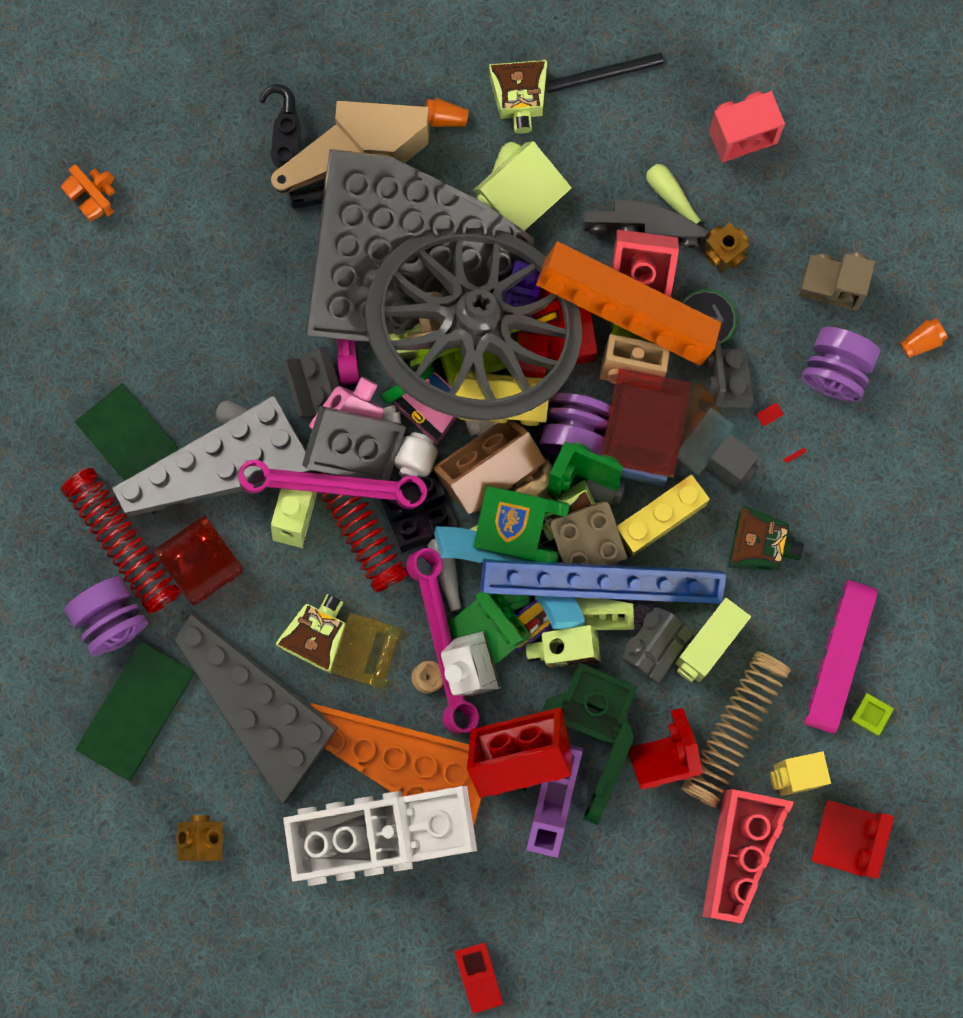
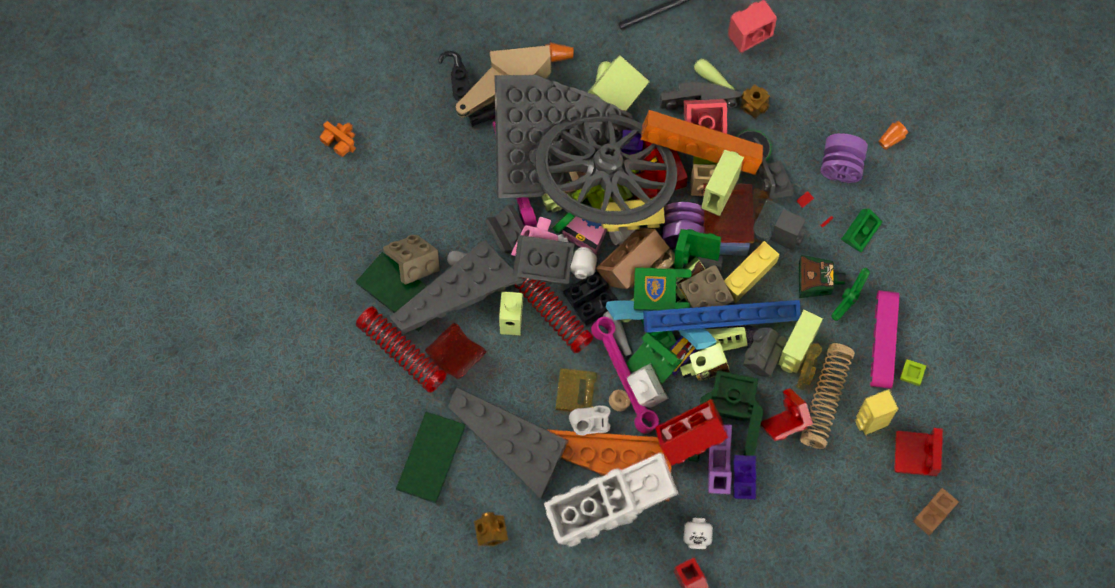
camera: 10 degrees left, 10 degrees down
(103, 611) = (401, 397): medium lavender wheel -> none
(164, 401) = (414, 257): none -> dark tan bracket
(315, 634) = (540, 386): torso -> none
(332, 484) = (532, 286): dark pink piece -> none
(375, 702) = (593, 420): none -> white piece
(501, 902) = (698, 533): none -> white head
(519, 91) = (602, 30): torso -> none
(587, 831) = (744, 477): none -> dark purple slope
(644, 377) = (722, 182): none -> yellowish green brick
(713, 689) = (809, 366): none -> clear yellow plate
(741, 851) = (848, 469): coral wedge -> none
(803, 579) = (851, 294): none -> green piece
(836, 282) = (831, 110): dark tan brick -> none
(844, 478) = (862, 229): none -> green slope
(858, 933) = (935, 511): none -> medium nougat slope

